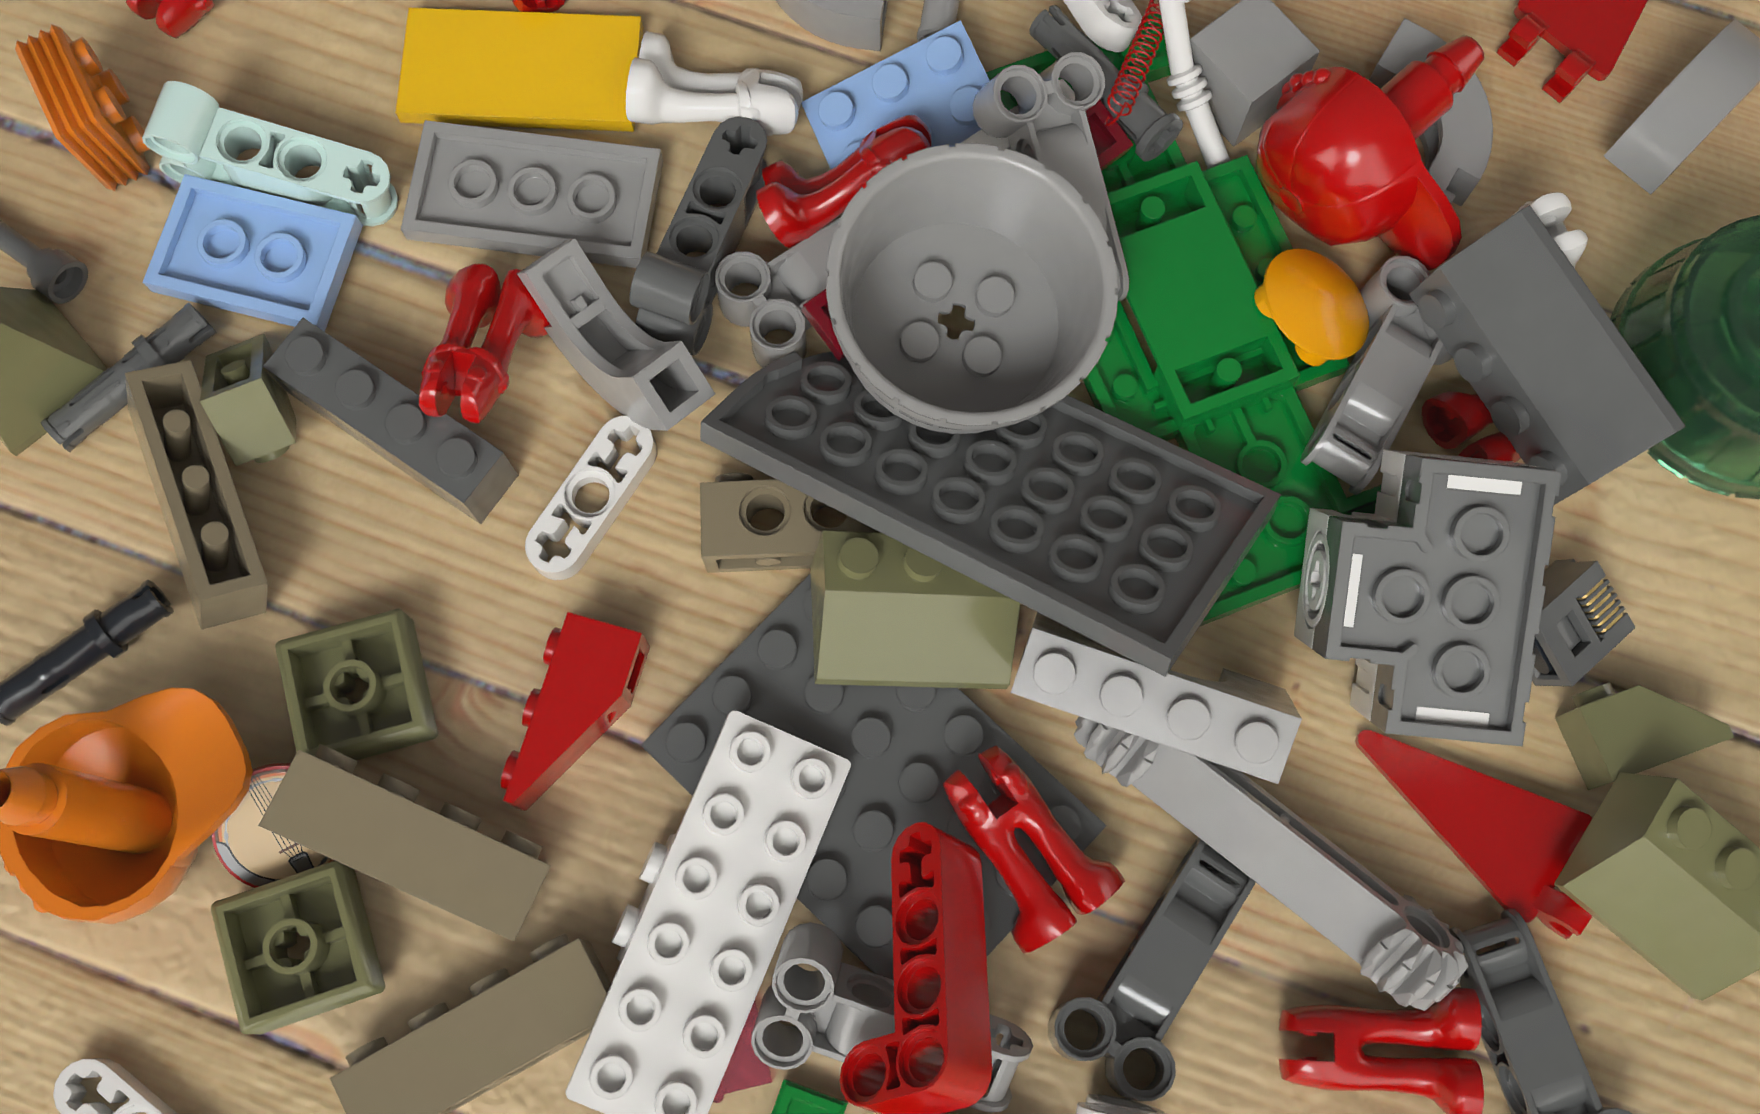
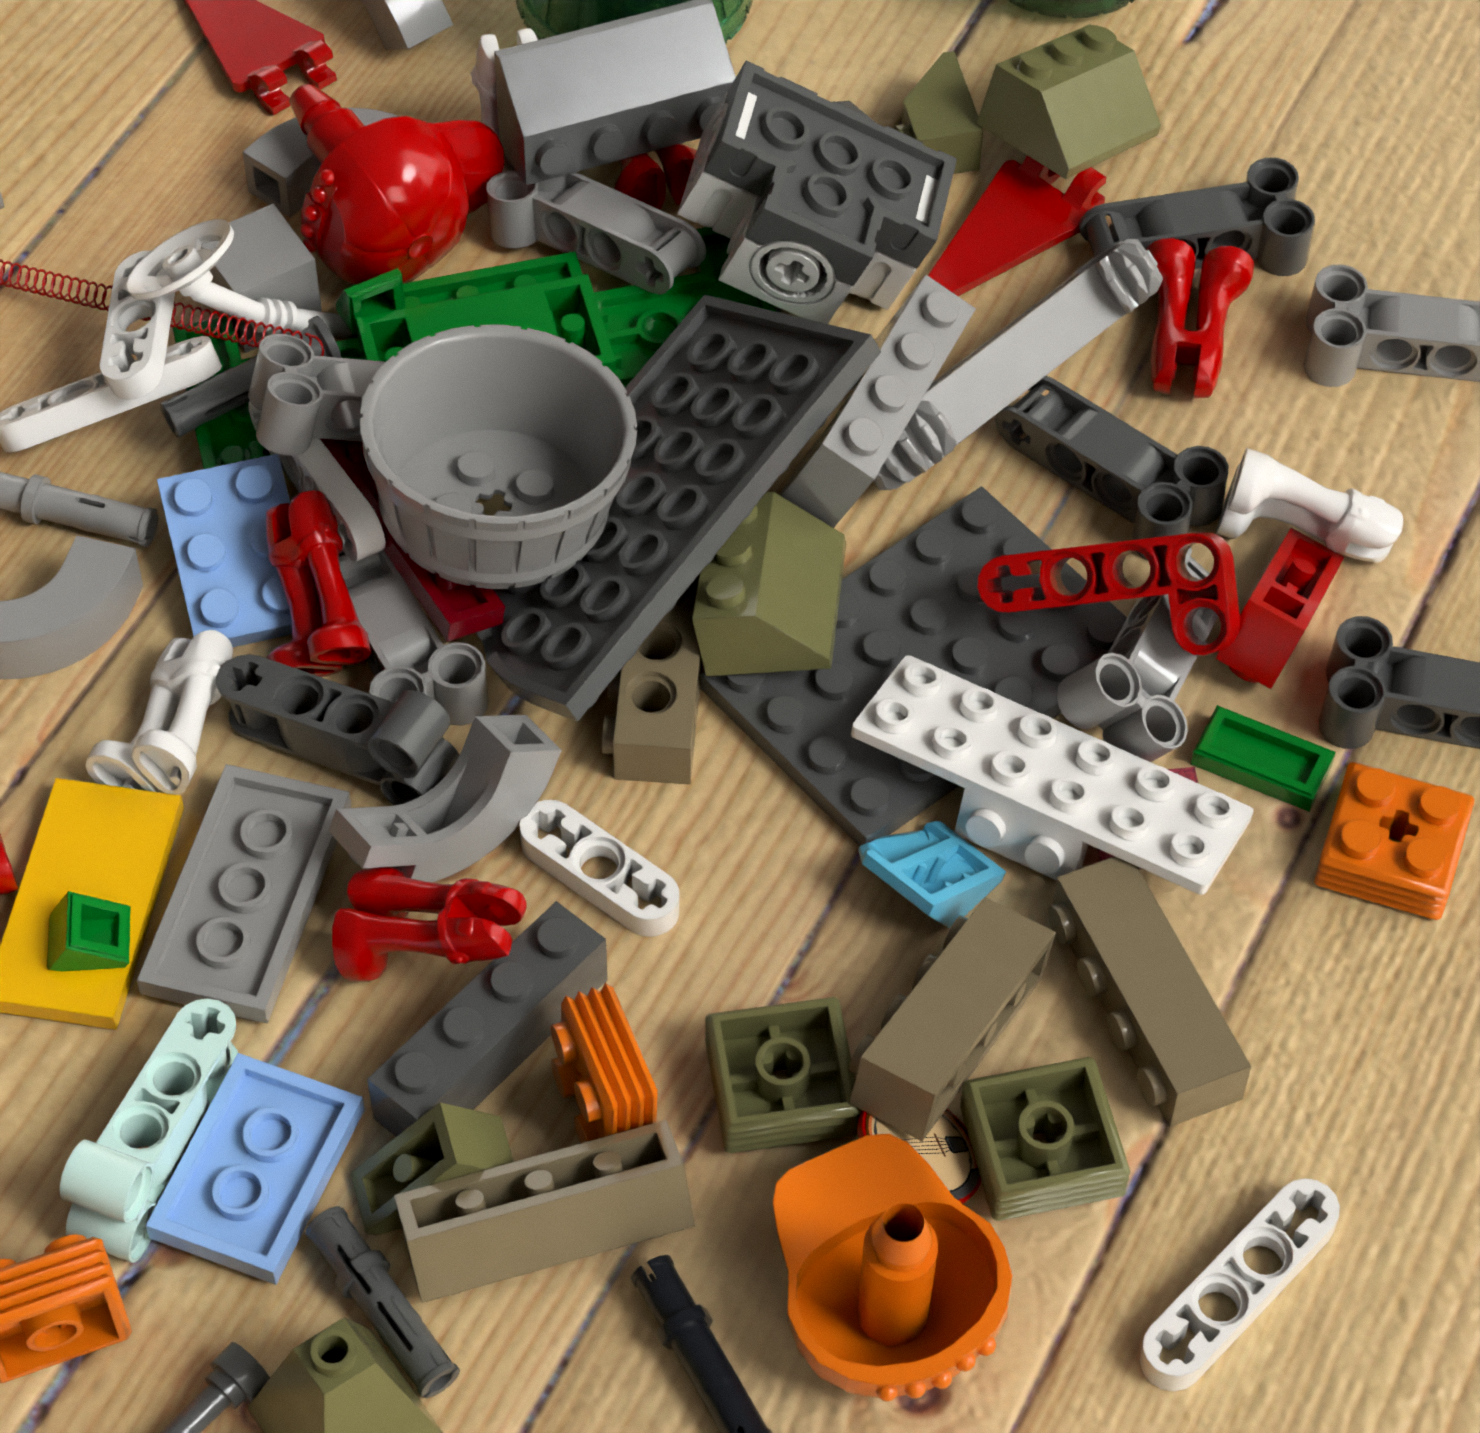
camera: 85 degrees left, 20 degrees down
(321, 525) = (602, 1066): none -> orange brick
(469, 75) = (88, 934): none -> green slope
(583, 694) = (811, 879): red slope -> none
(606, 805) = (933, 870): none -> medium azure slope
(992, 827) = (963, 537): red piece -> none
(1227, 175) = (371, 297): none -> green slope
(1314, 306) = (520, 255): light orange dish -> none

